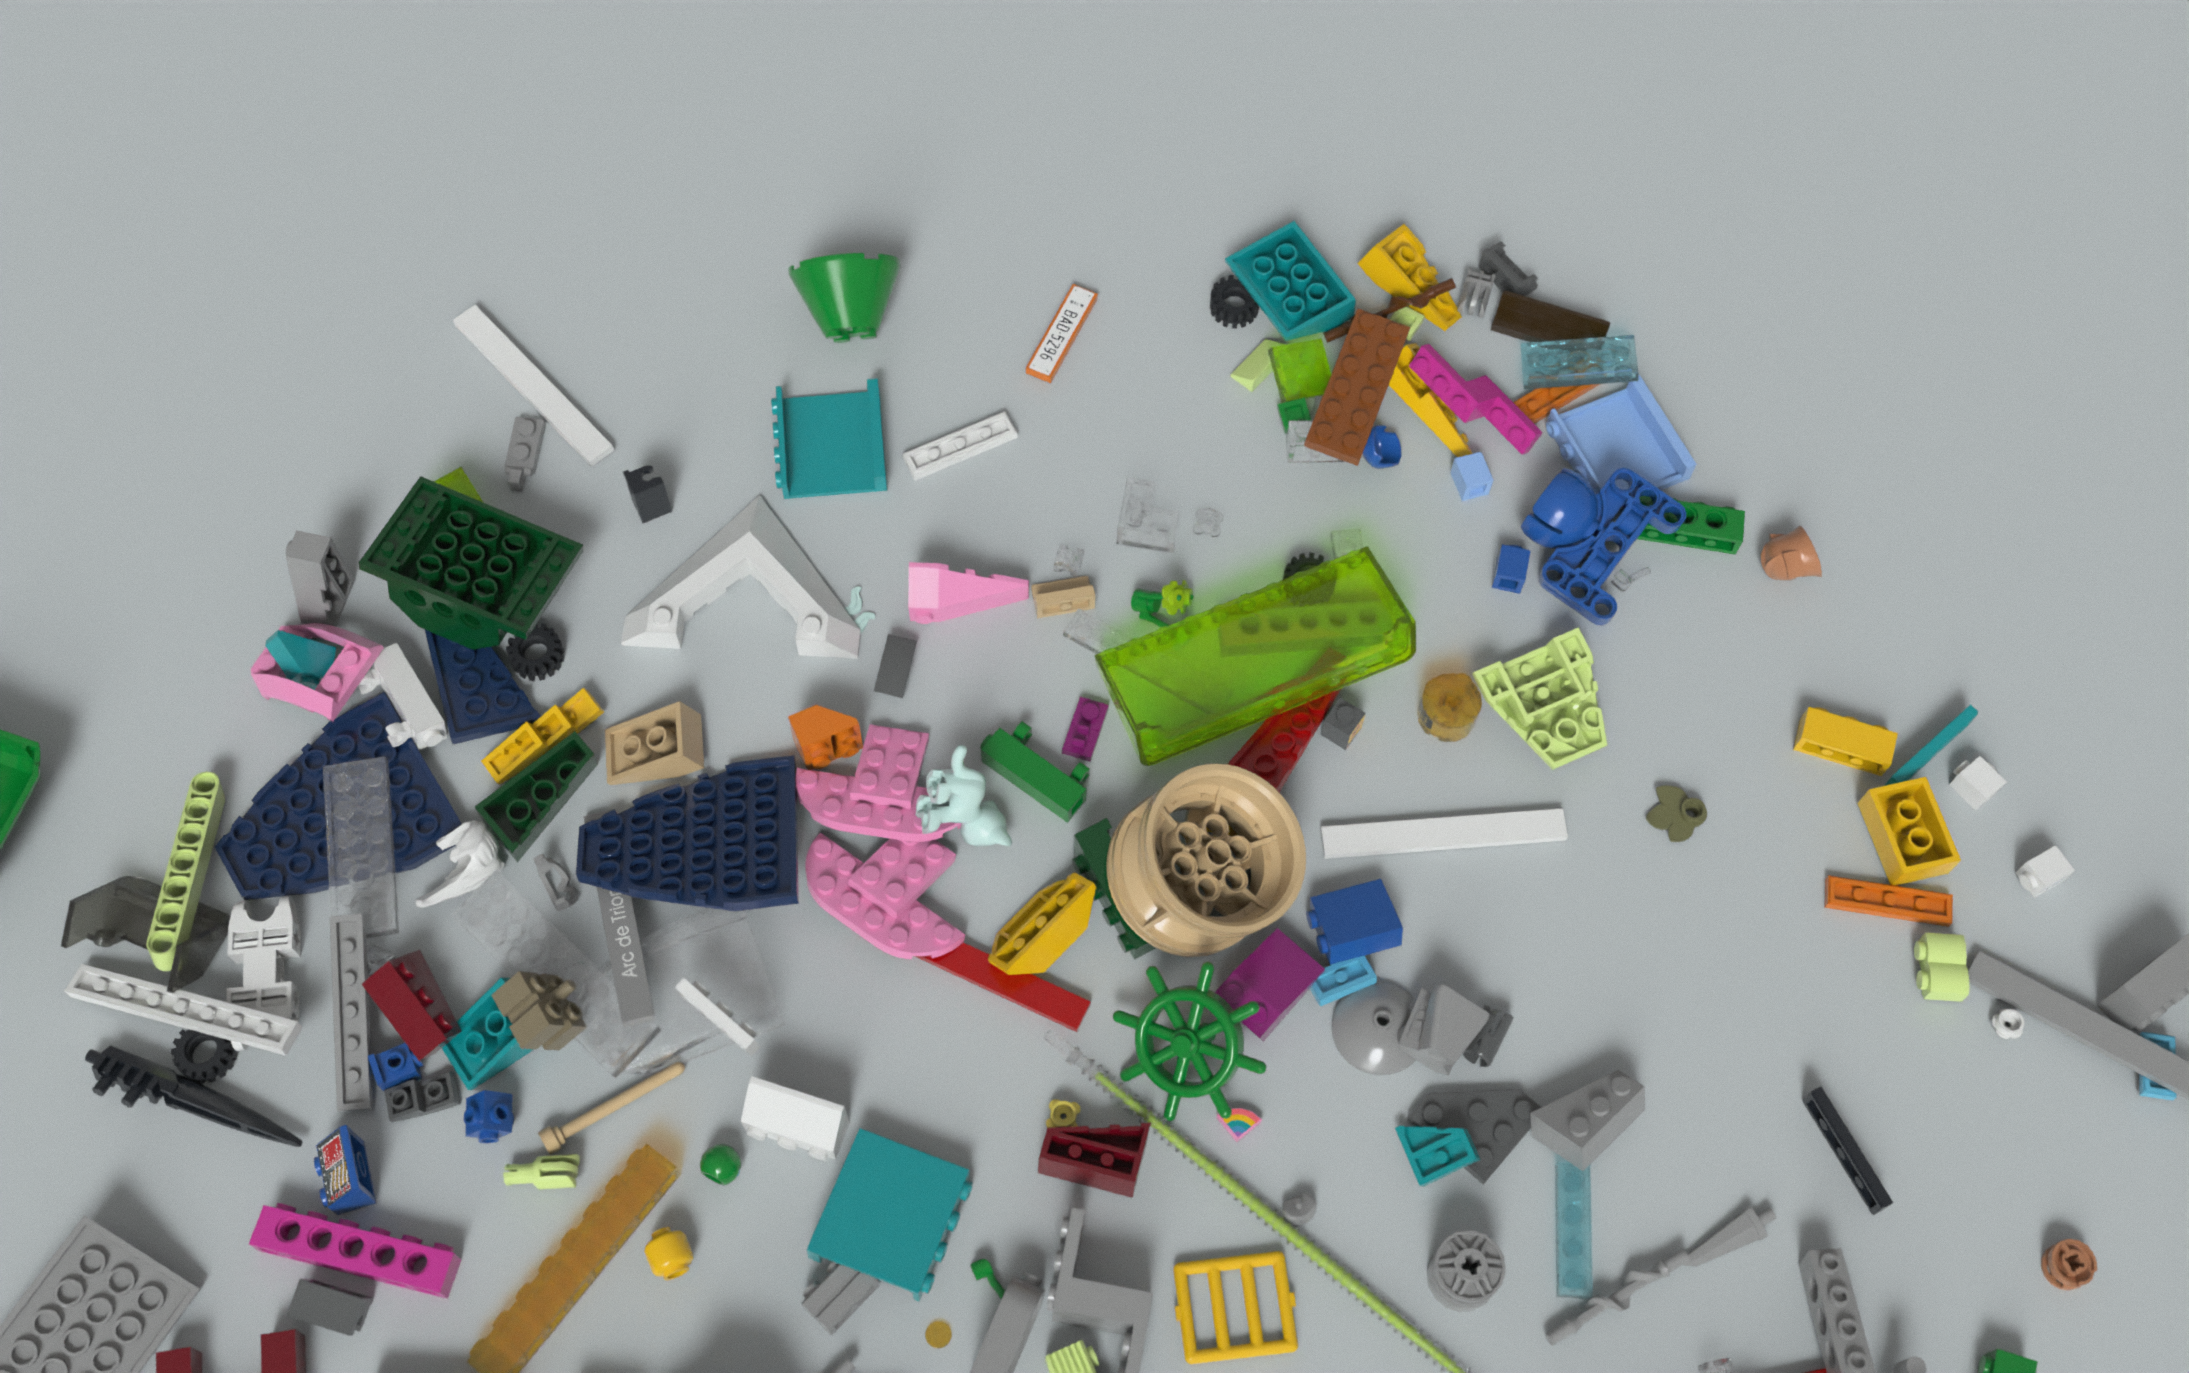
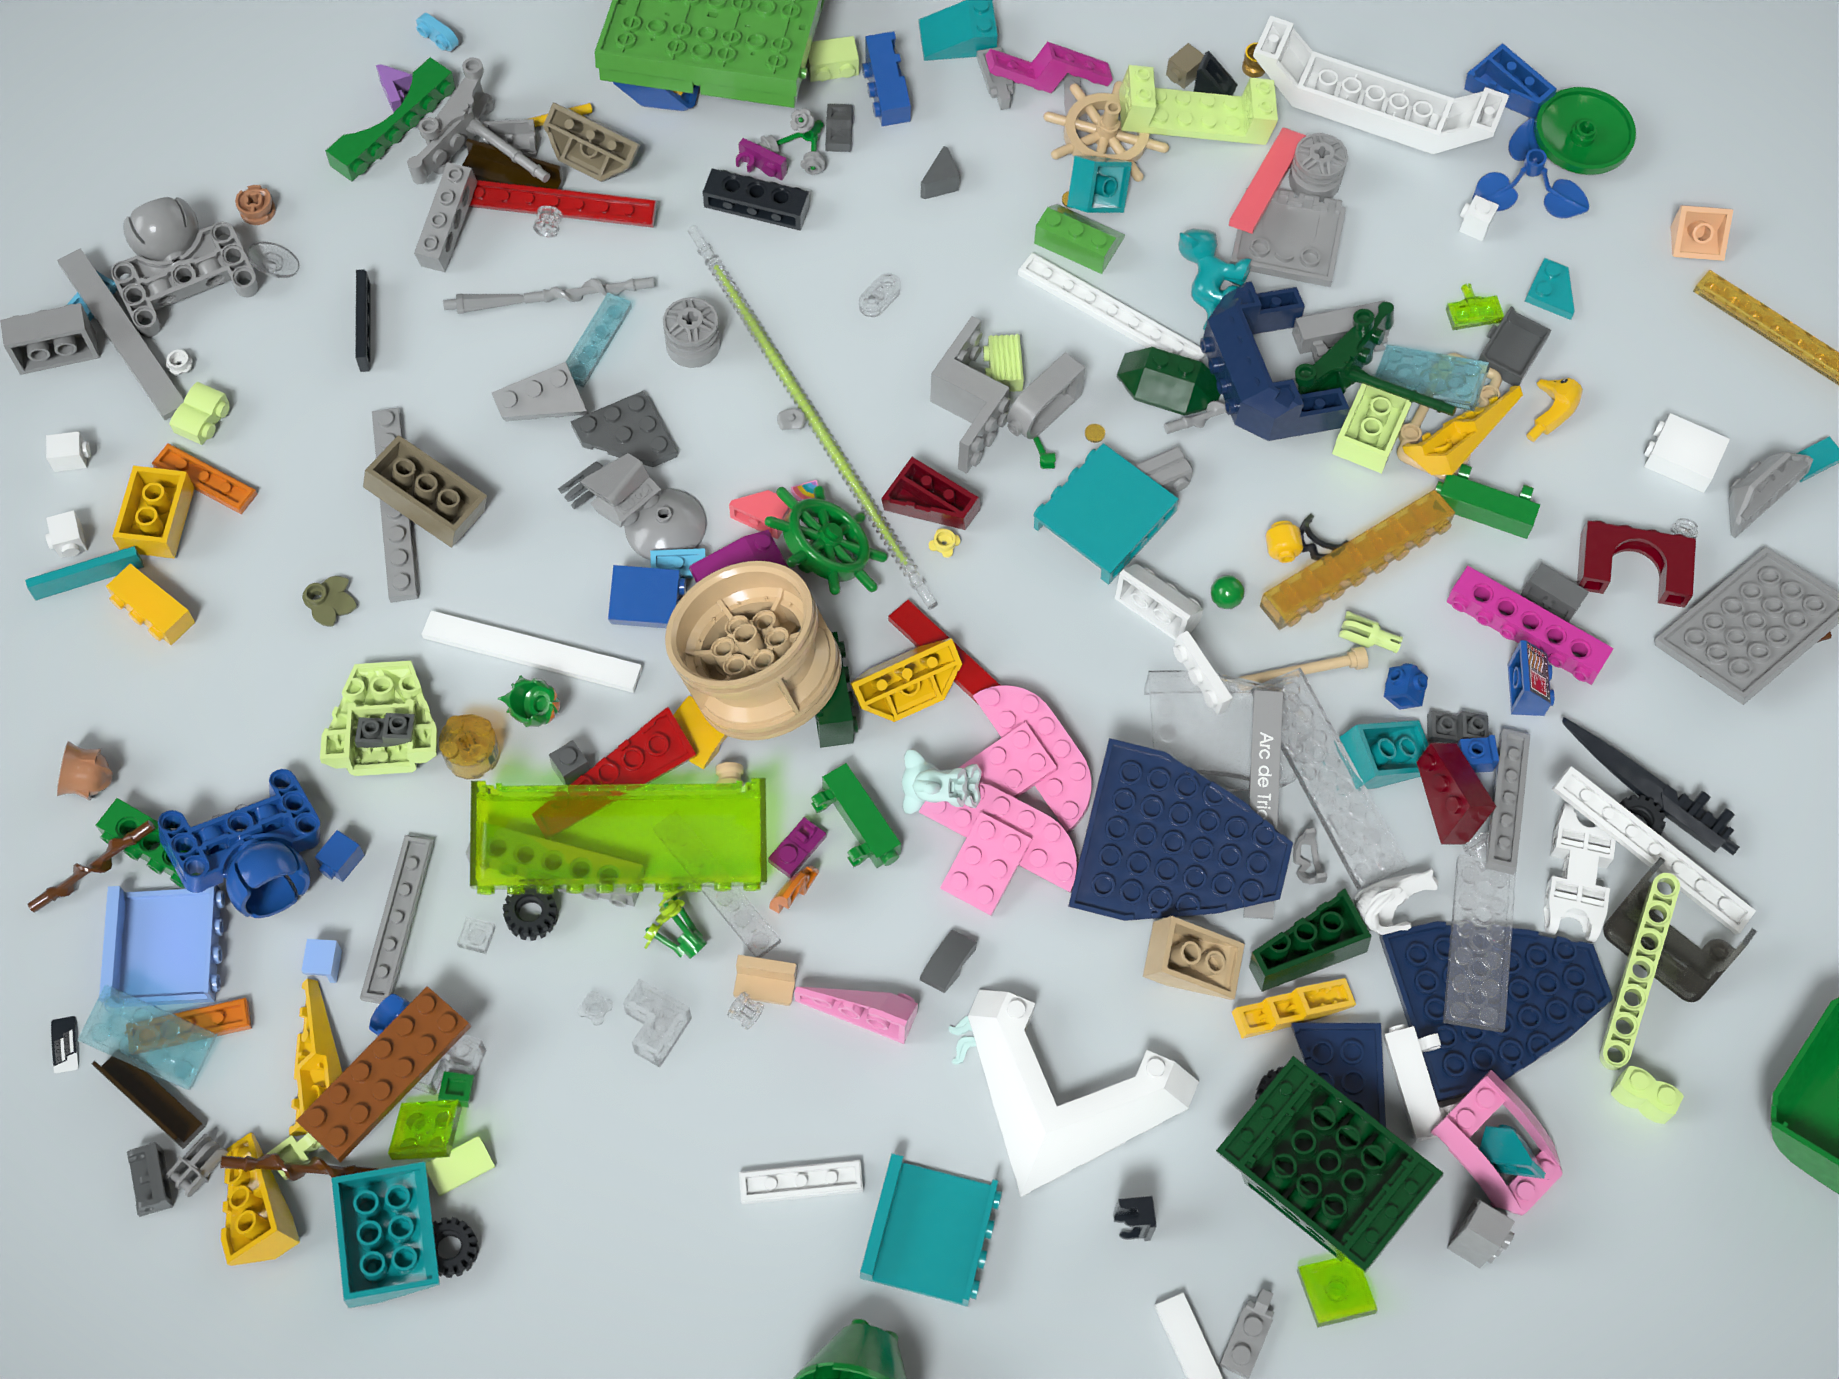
camera: 160 degrees left, 0 degrees up
(168, 763) = (1641, 1091): none -> yellowish green brick
(540, 1010) = (1349, 723): dark tan brick -> none
(640, 1269) = (1312, 547): none -> black helmet
(824, 736) = (1037, 903): orange slope -> none
(1061, 333) = (644, 1279): tile -> none
(1072, 676) = (797, 884): none -> orange brick
(1178, 762) = (729, 772): none -> tan wheel
(1257, 1345) = (863, 347): yellow bar -> none
(1281, 1075) = (756, 507): none -> coral slope
(1409, 760) = (532, 702): none -> green hair
(1427, 541) = (397, 919): none -> light grey tile
(1436, 1151) = (669, 417): teal wing -> none
(1475, 399) = (273, 1035): dark pink bracket -> none
(1535, 680) = (384, 732): none -> dark grey slope
(1647, 947) = (424, 491): none -> dark tan brick
(1651, 351) = (64, 1044): none -> sticker
(1678, 947) = (395, 526): none -> light grey plate
(1721, 477) = (100, 865): none -> reddish brown piece
(2000, 1205) = (273, 259): none -> clear dish
(2114, 1146) = (168, 251): none -> light grey beam

